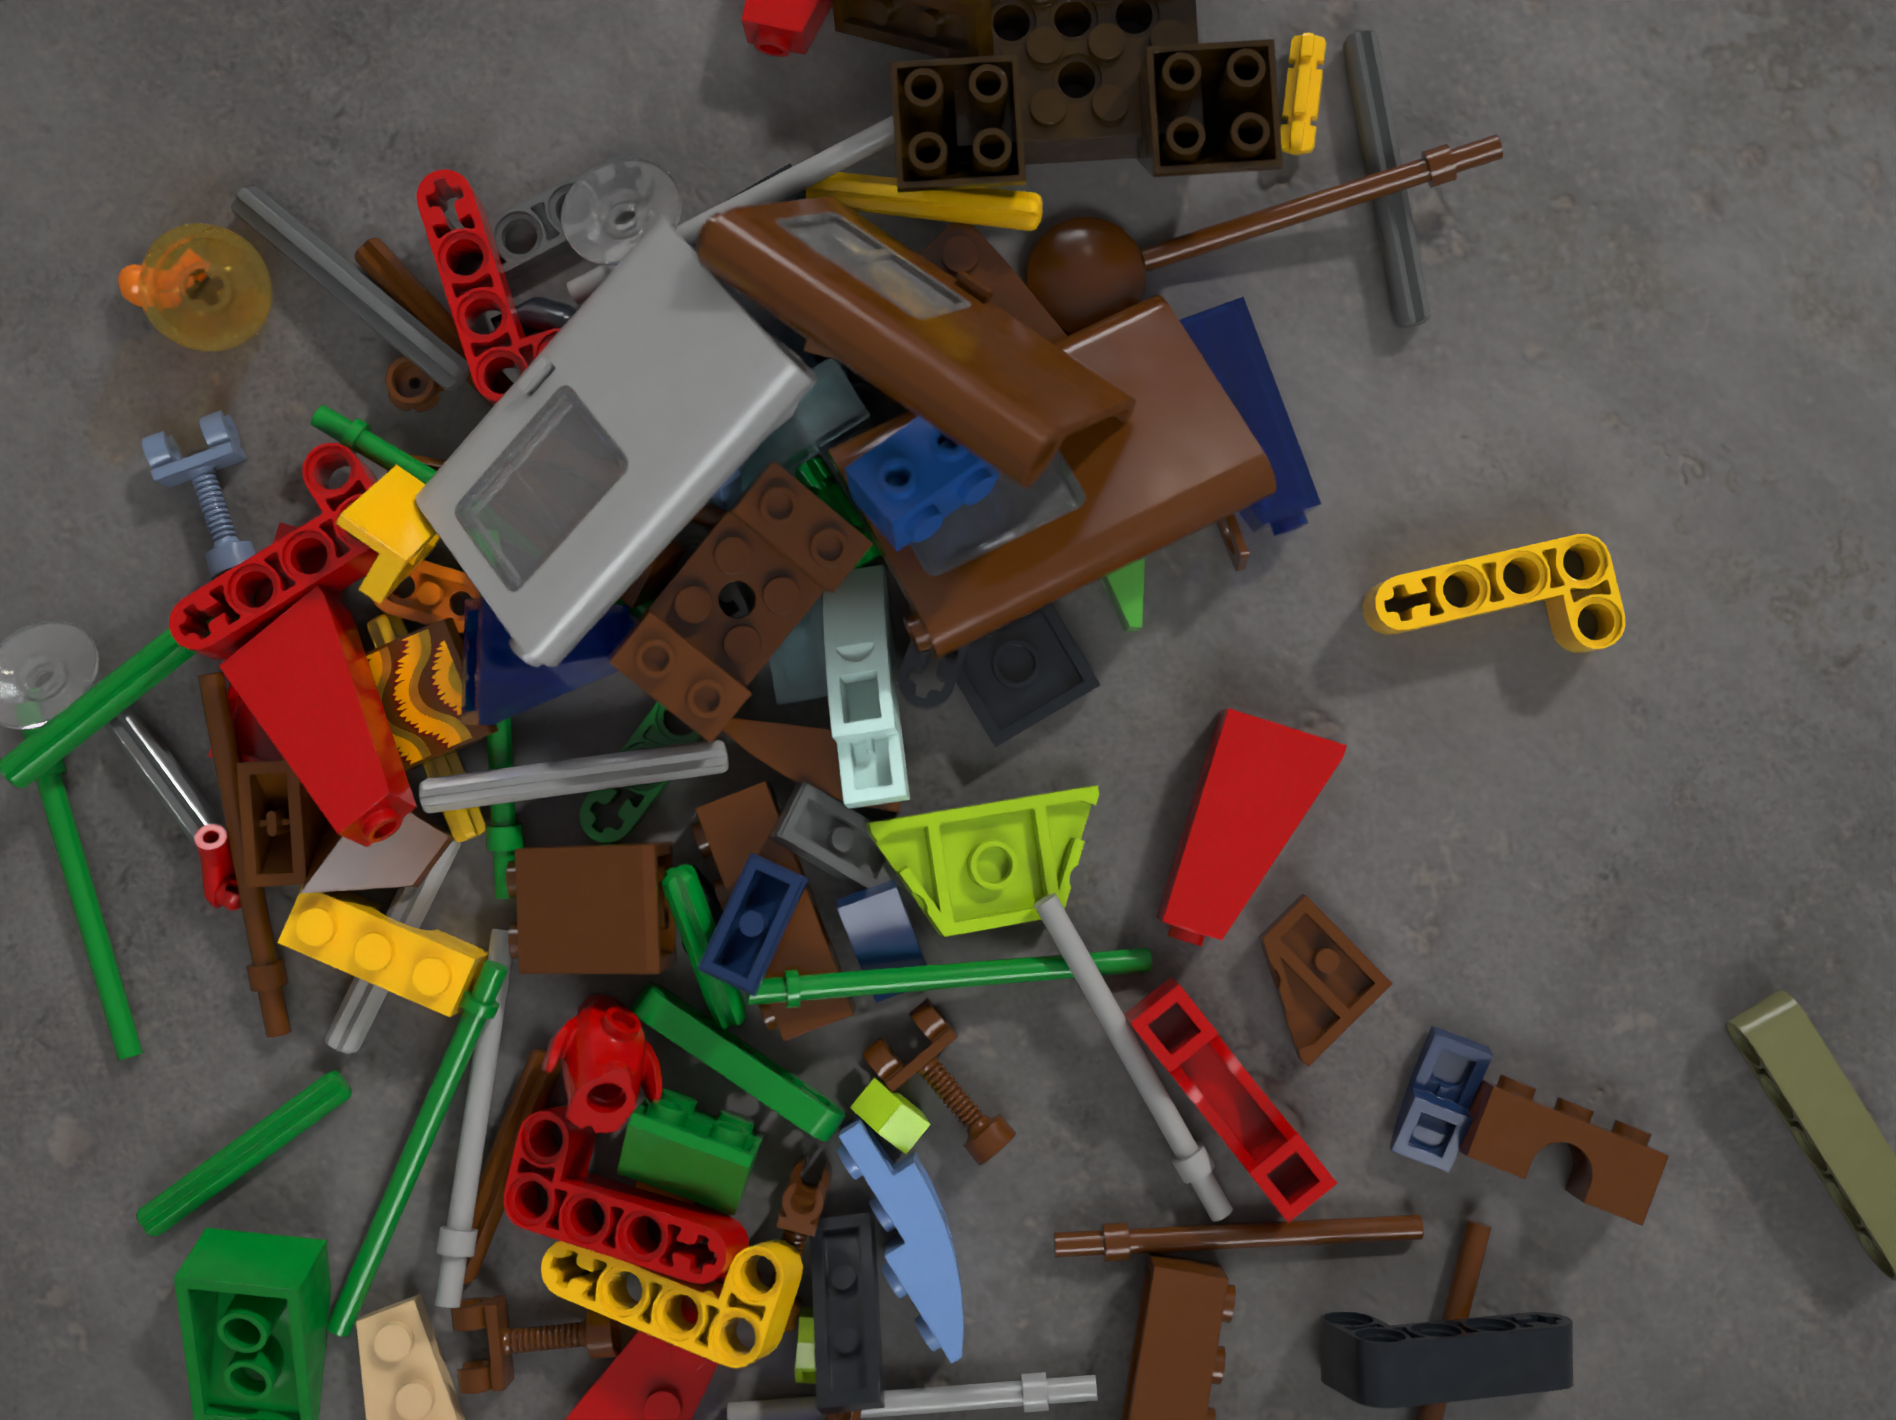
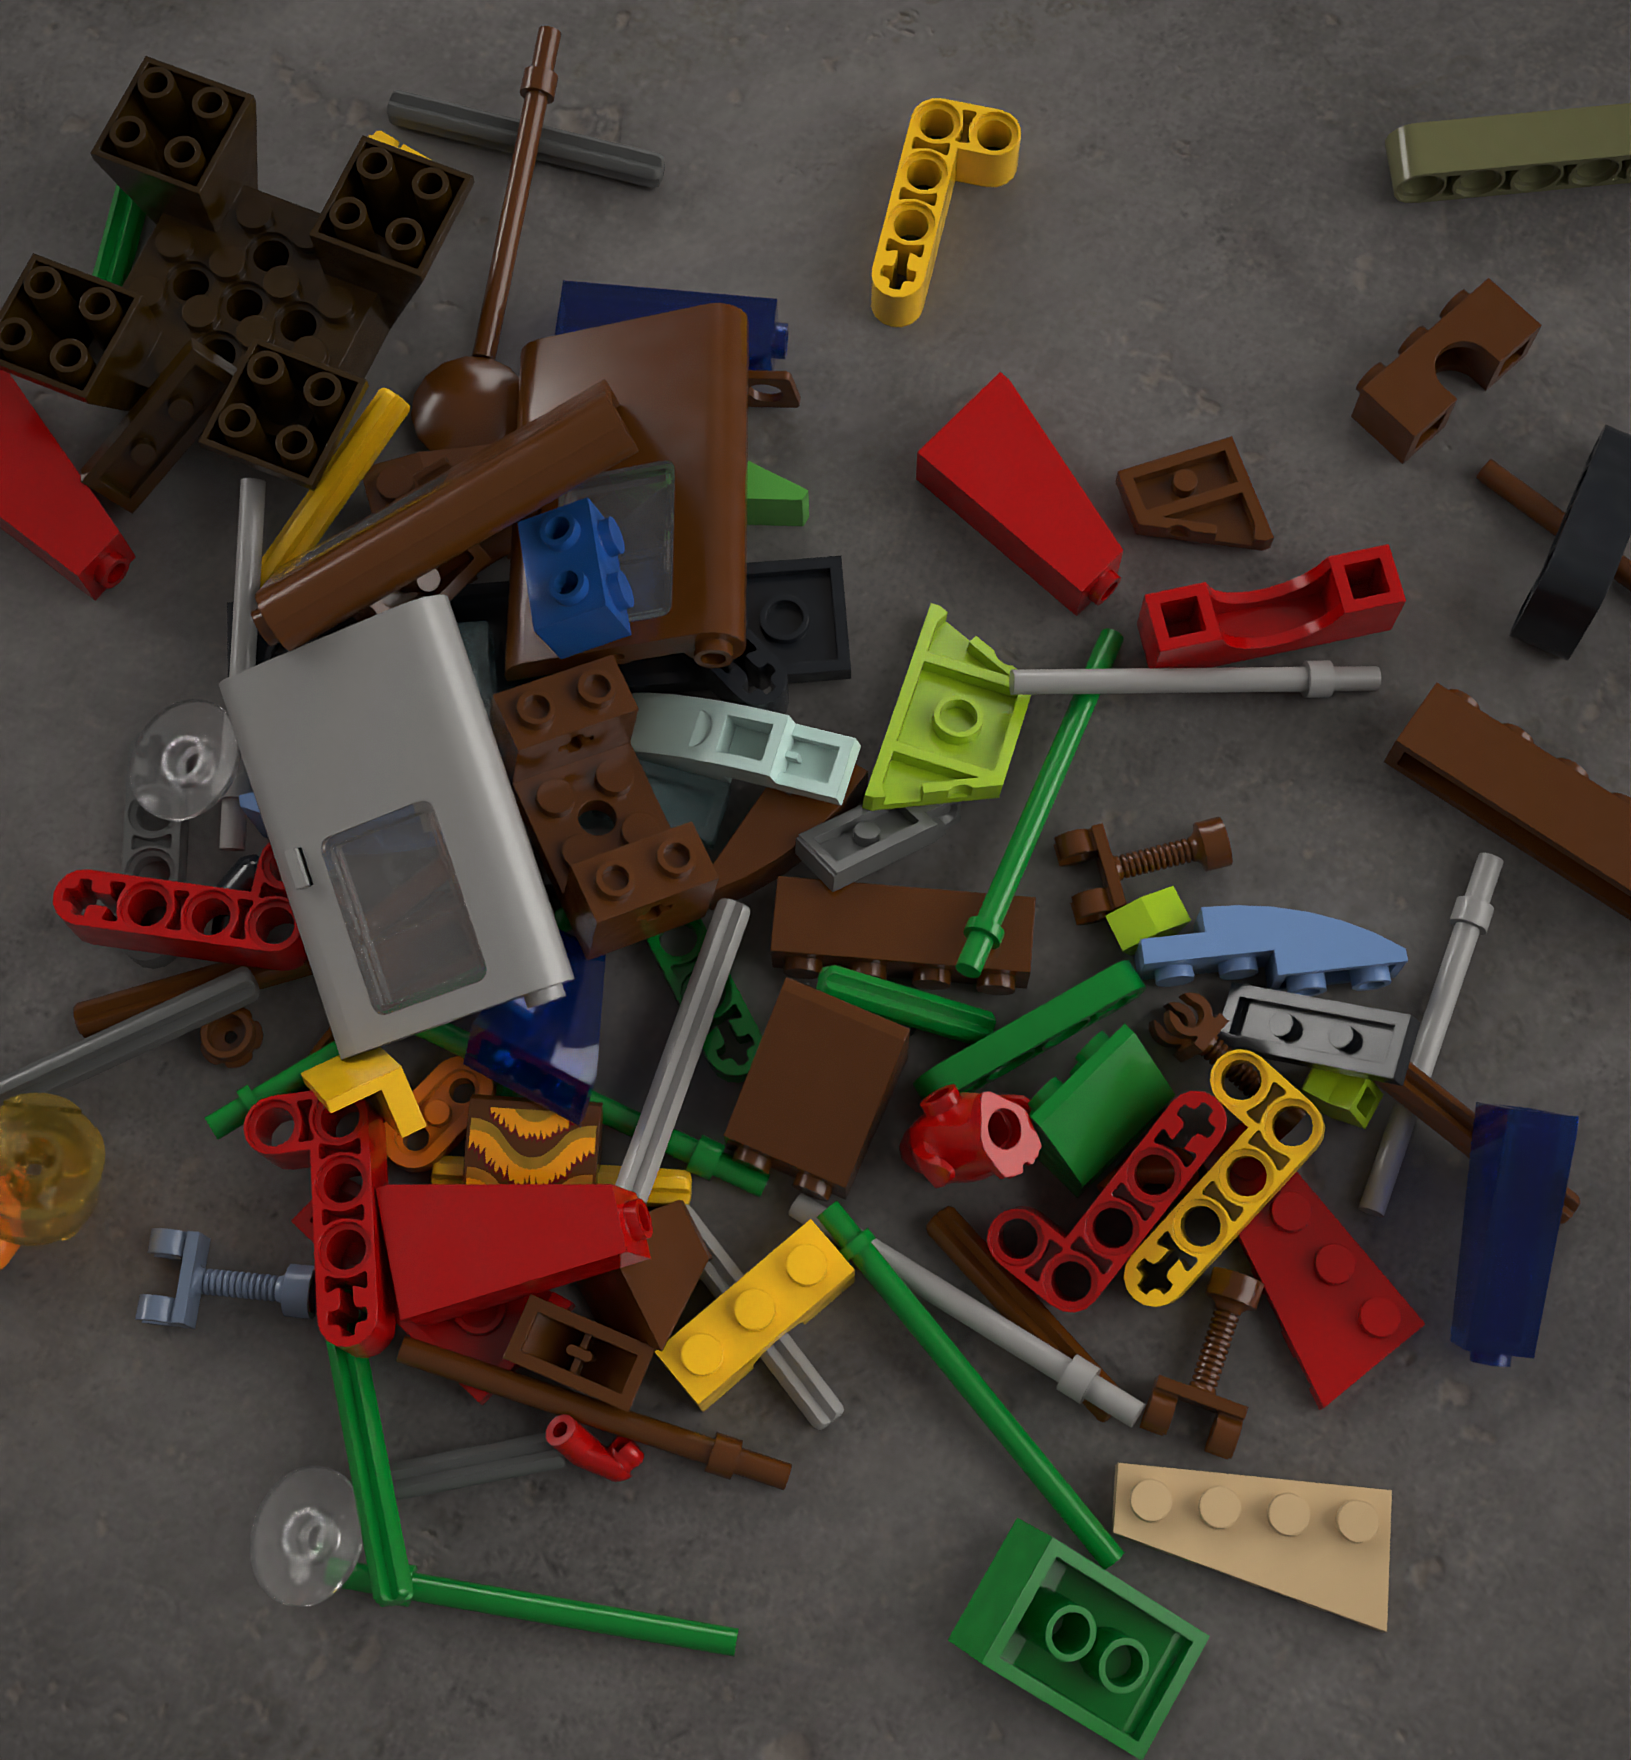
camera: 60 degrees left, 15 degrees down
(243, 1153) = (891, 1571): green axle -> none
(753, 924) = (907, 931): dark blue slope -> none
(880, 930) = (971, 841): dark blue slope -> none
(1118, 1242) = (1362, 775): reddish brown bar -> none
(1439, 1099) = (1353, 452): dark blue slope -> none

